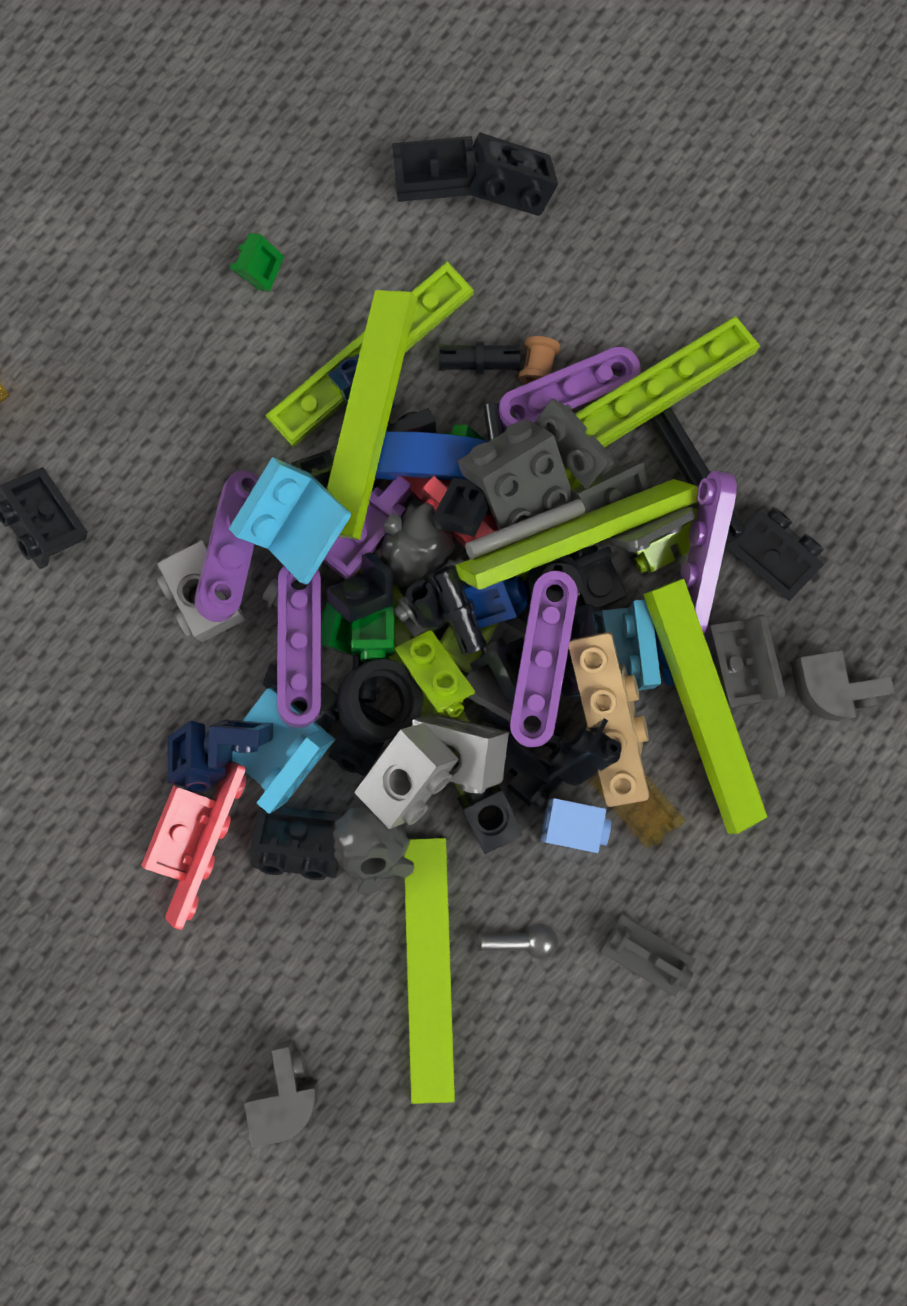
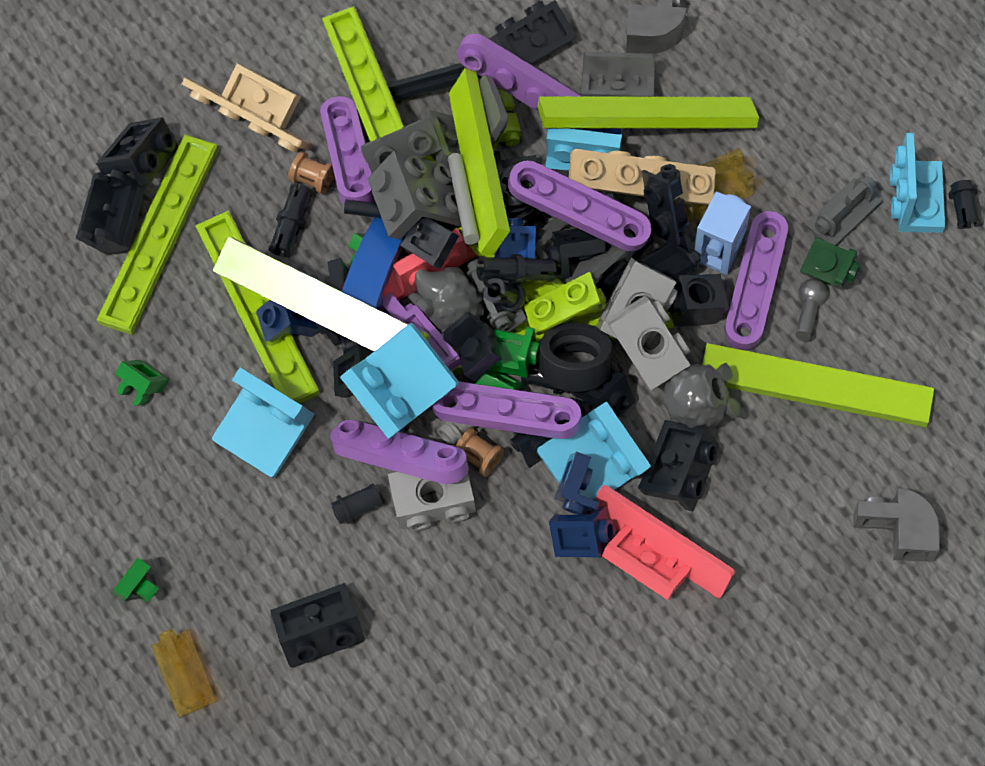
camera: 70 degrees left, 15 degrees down
(40, 328) = (134, 582): none -> green tile
(175, 518) = (356, 504): none -> black pin
(236, 398) = (262, 425): none -> medium azure bracket
(259, 627) = (480, 452): none -> medium nougat bush
(431, 228) = (157, 235): none -> lime tile
(536, 876) = (756, 280): none -> medium lavender plate
(576, 956) = (830, 264): none -> dark green bracket
(606, 276) = (256, 100): none -> tan bracket
(694, 1037) = (918, 191): none -> medium azure bracket
(694, 1095) = (965, 203): none -> black pin

